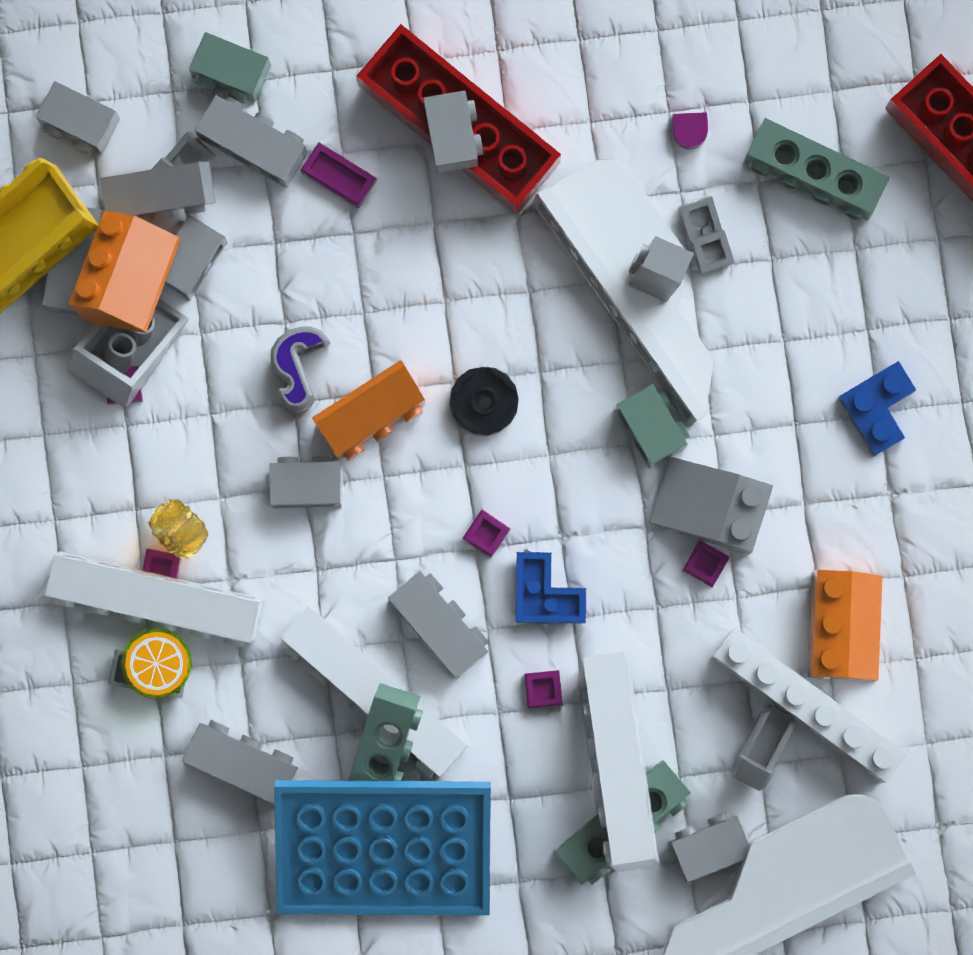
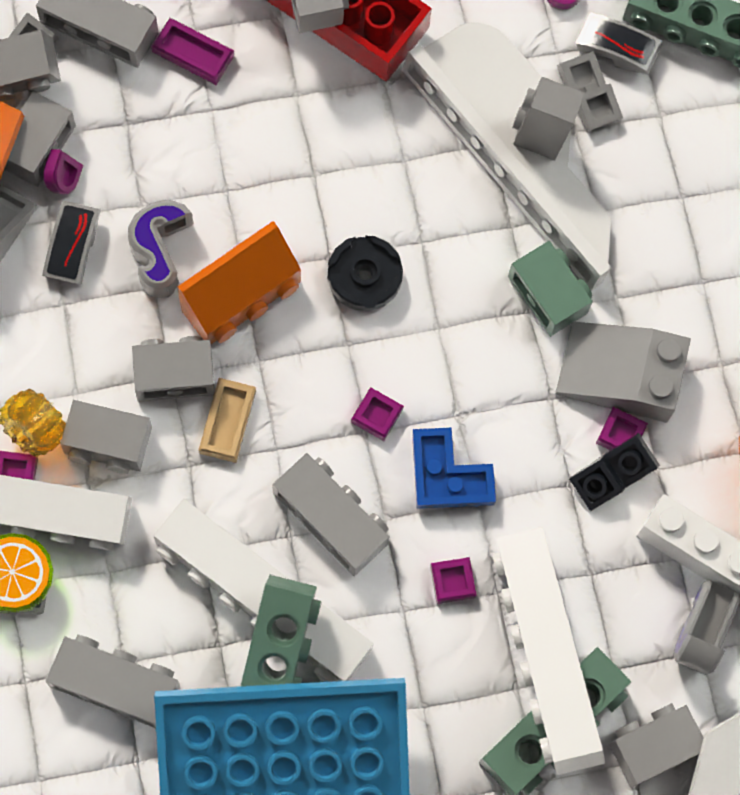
camera: 10 degrees left, 10 degrees down
(212, 291) = (61, 172): none -> magenta tile
(219, 357) = (71, 242): none -> black slope
(243, 543) = (105, 437): none -> light grey brick
(352, 531) = (227, 420): none -> tan tile
(695, 600) = (614, 471): none -> black slope
(737, 188) = (622, 43): none -> slope

